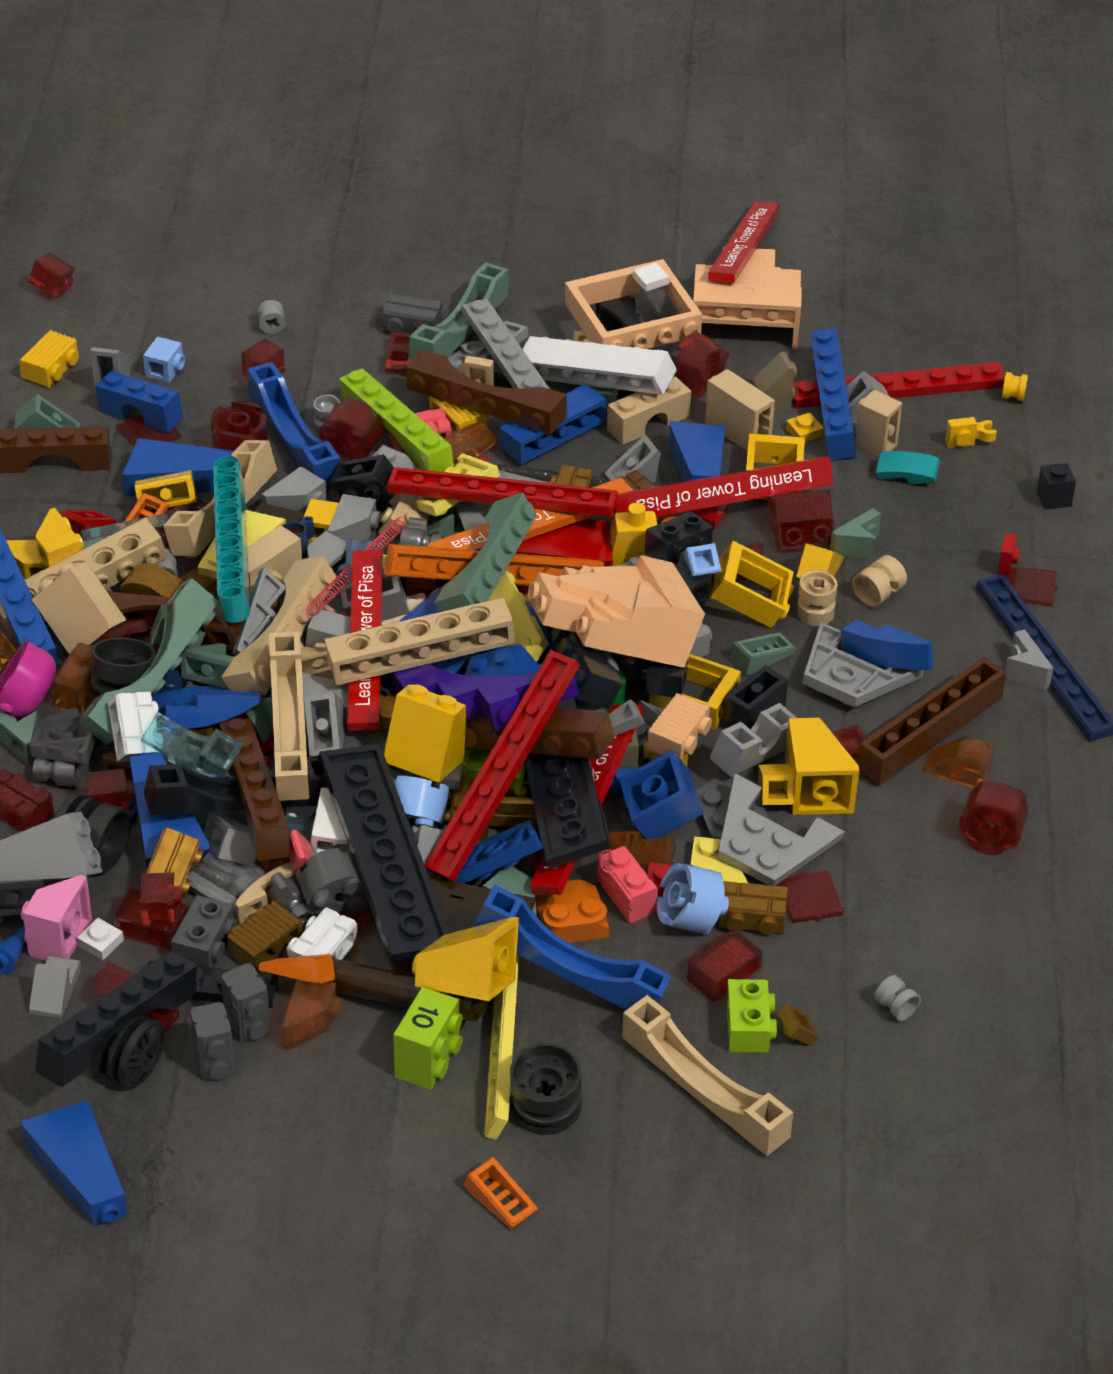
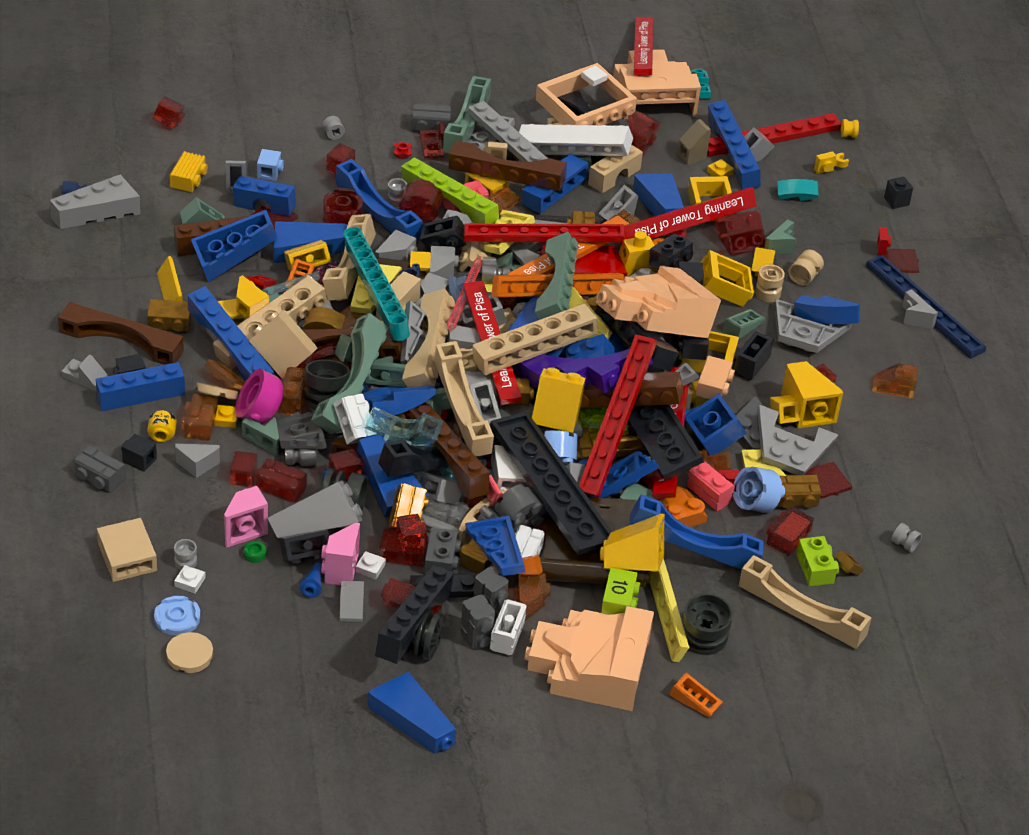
camera: 15 degrees left, 0 degrees up
(66, 463) = (233, 243): none -> blue wedge
(256, 1054) = (508, 627): none -> white brick
(276, 931) = (498, 543): none -> blue wing
(357, 357) = (402, 150): none -> red plate
(365, 1112) = (593, 655): none -> light nougat panel
(702, 560) = (696, 265): light blue slope -> none
(738, 407) = (679, 159): tan brick -> none
(743, 748) = (763, 383): light grey arch -> none
(815, 303) = (705, 92): none -> teal slope
(877, 423) = (772, 161): tan brick -> none
(931, 721) = (872, 354): reddish brown brick -> none
(994, 817) = (931, 414): clear red brick -> none

